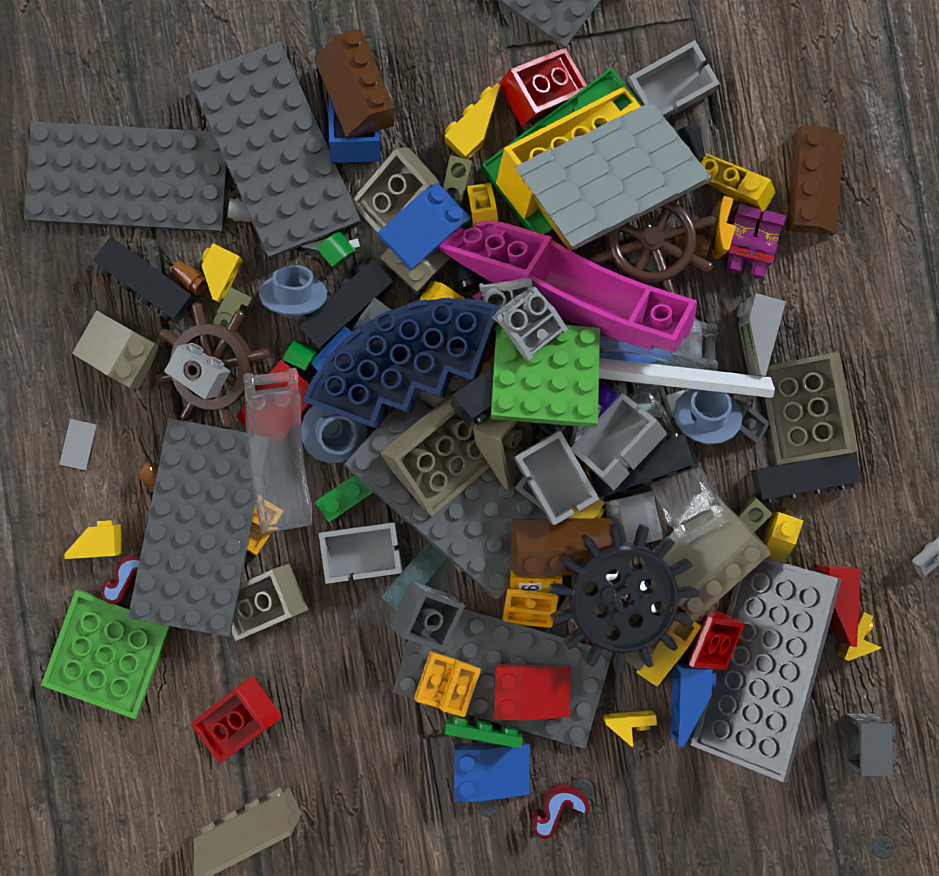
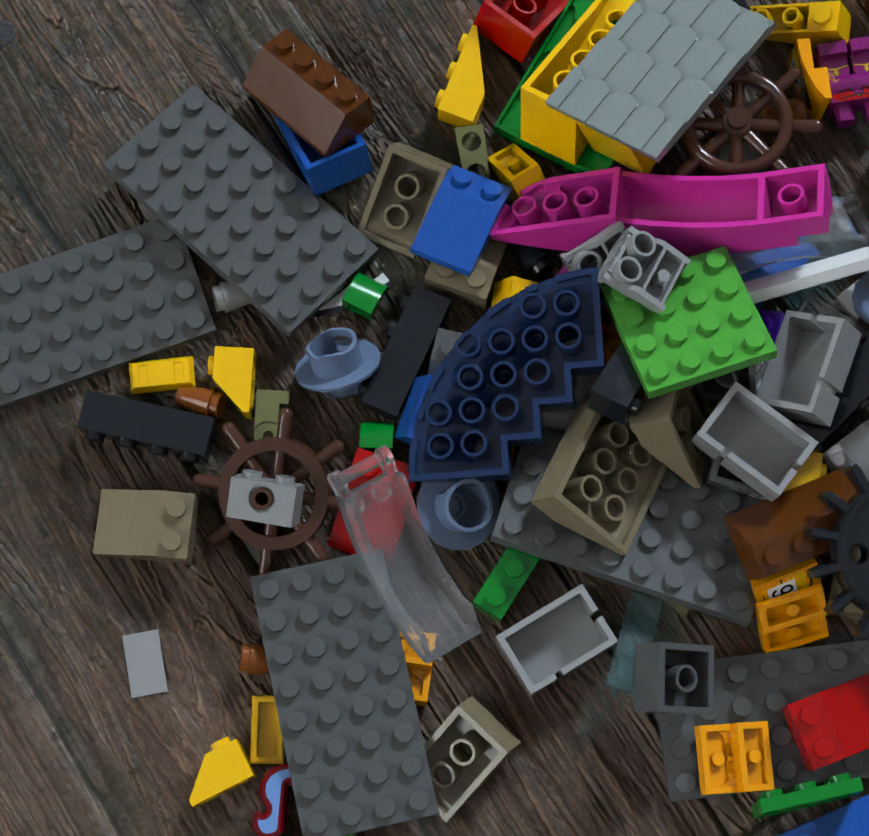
camera: 20 degrees left, 10 degrees down
(136, 529) = (266, 734): none -> yellow tile
(171, 246) = (161, 375): none -> yellow tile

